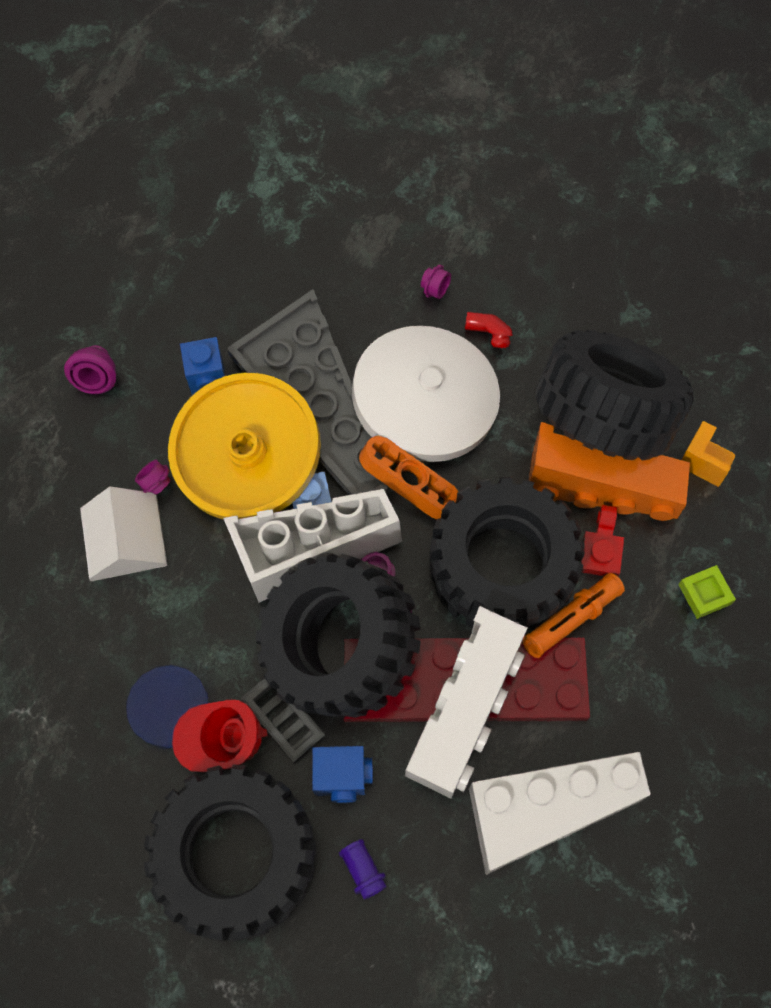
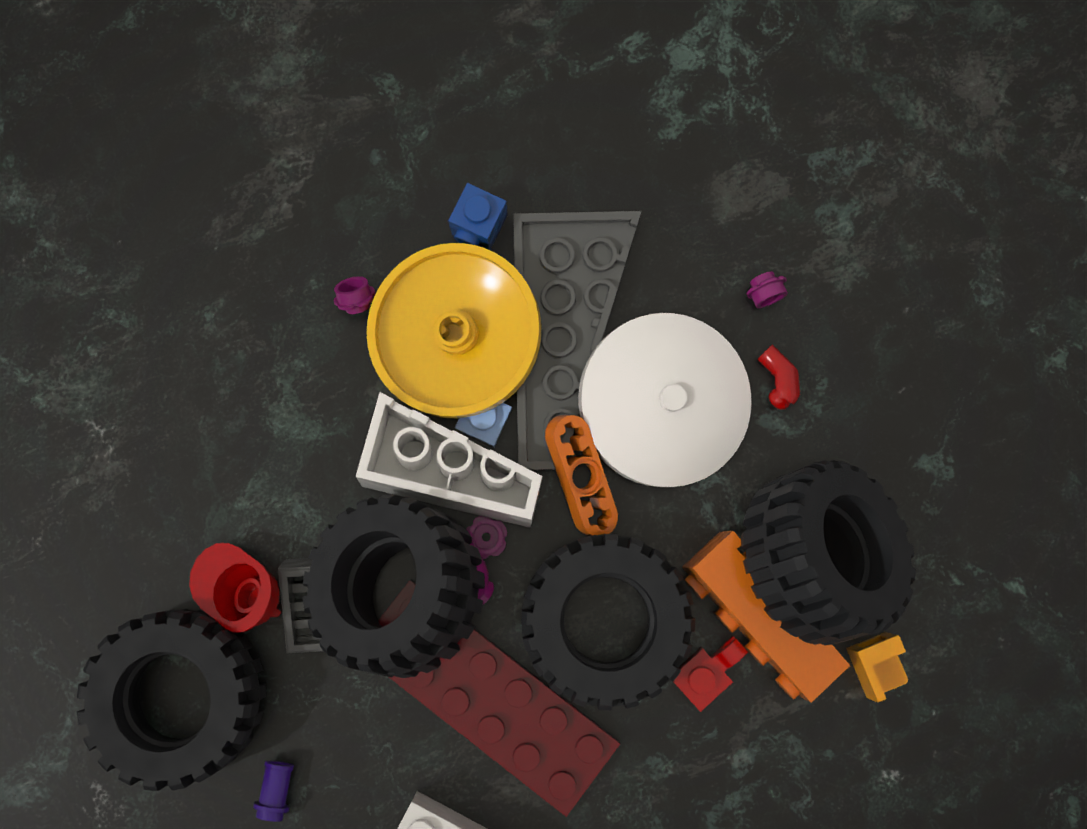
camera: 35 degrees right, 15 degrees up
(91, 370) = (375, 140): magenta brick -> none
(122, 533) = (291, 329): white slope -> none
(160, 701) = (216, 513): clear blue tile -> none
(341, 772) = (315, 697): blue brick -> none
(466, 704) = (457, 734): white wedge -> none
(604, 591) = (642, 718): orange pin -> none
(706, 592) = (765, 789): lime plate -> none

